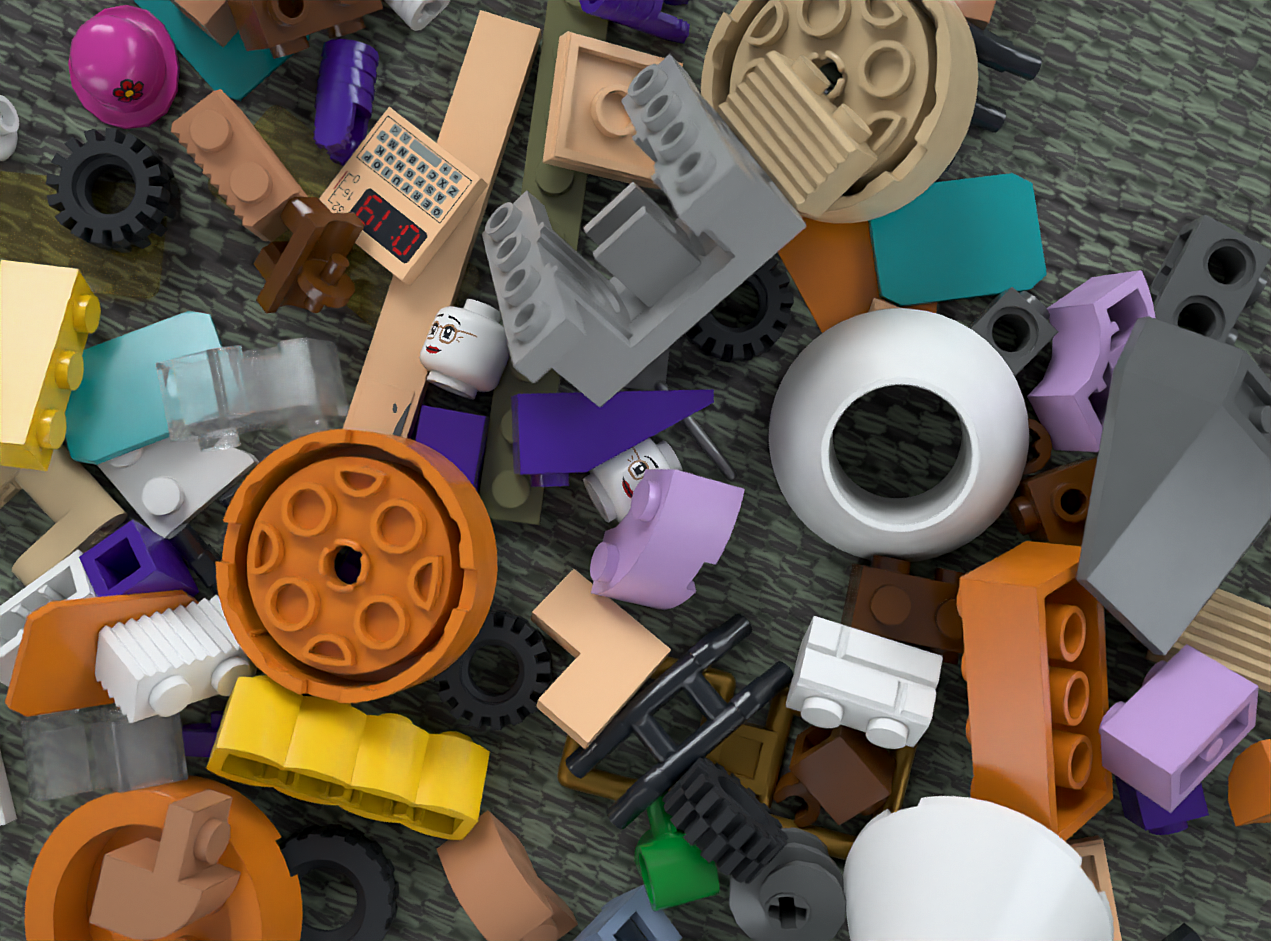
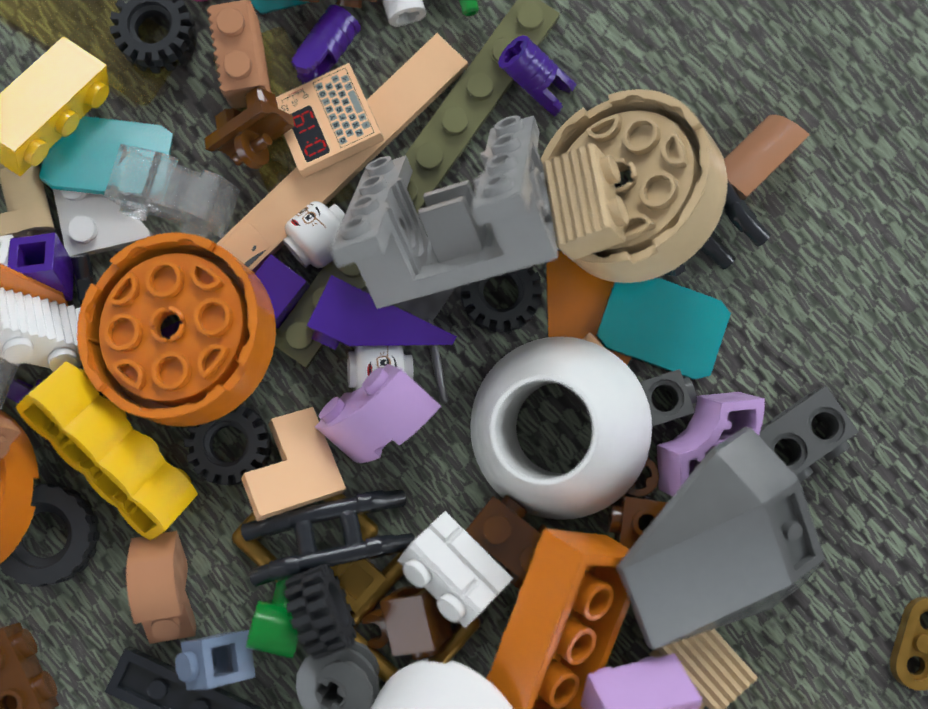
camera: 25 degrees right, 5 degrees down
(586, 115) = (468, 123): light nougat tile -> none

